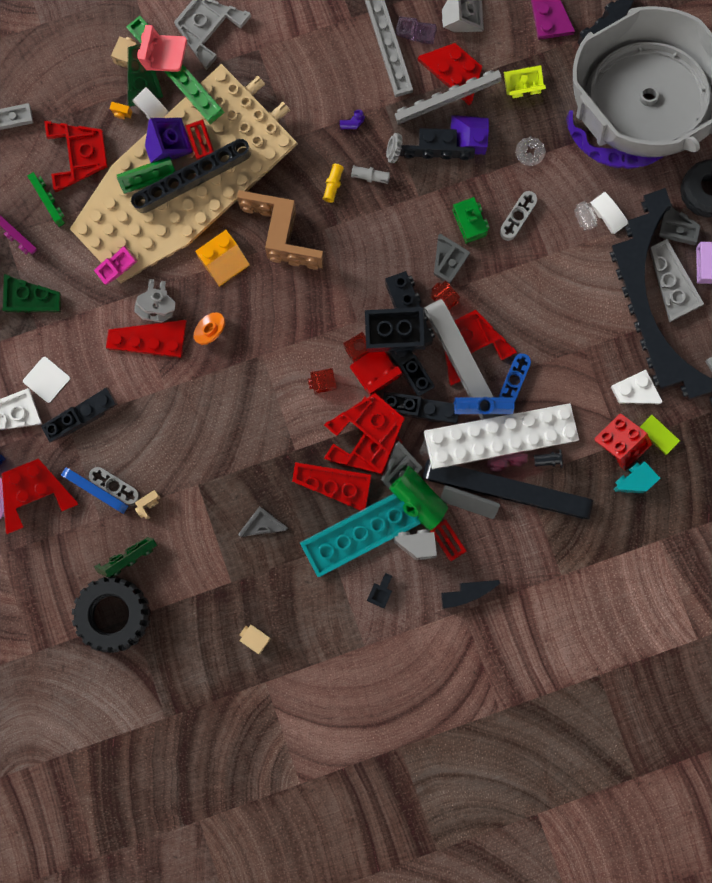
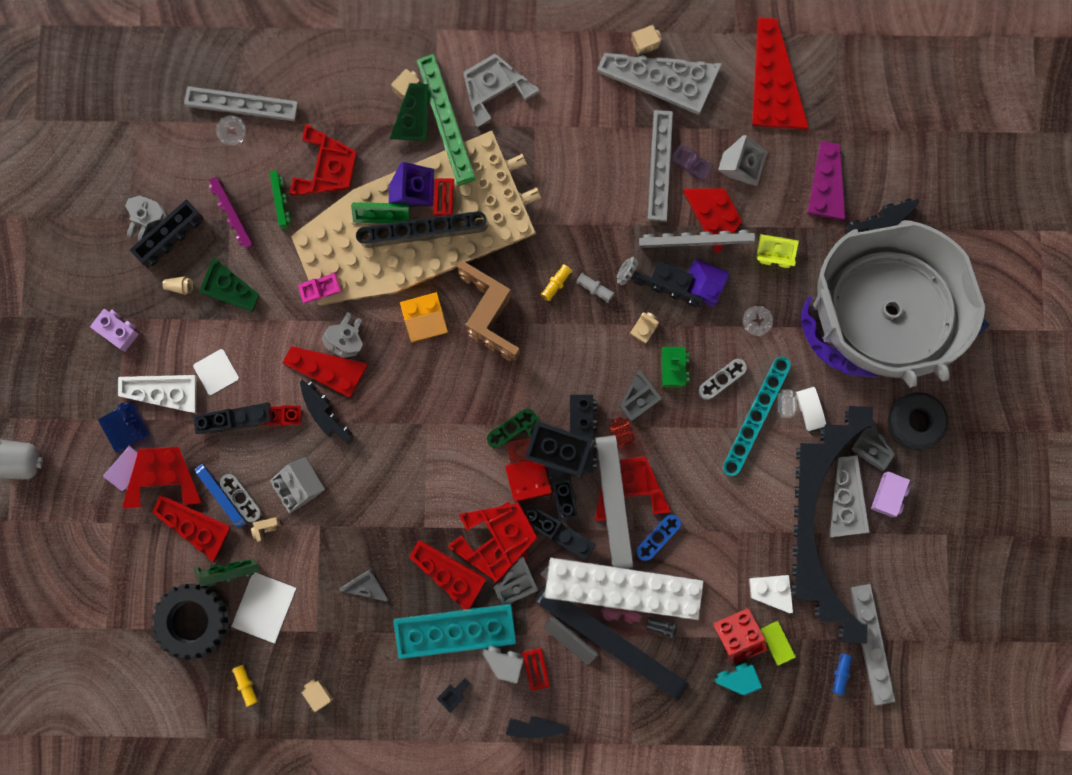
camera: 20 degrees right, 0 degrees up
(82, 528) = (197, 528): none -> red wing
(120, 110) = (381, 140): light orange plate -> none
(127, 395) = (285, 416): none -> red slope
(150, 104) = (410, 146): white slope -> none
(156, 376) = (318, 408): none -> black slope
(161, 51) = (439, 98): coral bracket -> none
(162, 453) = (297, 484): none -> light grey slope
(173, 579) = (263, 607): none -> white sticker
(184, 656) = (244, 685): none -> yellow pin
(209, 328) = (386, 380): orange dish -> none
(322, 381) = (473, 471): clear red brick -> none
(354, 122) = (598, 231): dark purple arm -> none
(355, 322) = (528, 427): none -> dark green beam
(419, 499) = (522, 620): green panel -> none
(429, 194) = (644, 327): none -> tan bracket
(496, 405) = (628, 559): blue piece -> none
(562, 246) = (763, 409): none -> teal beam

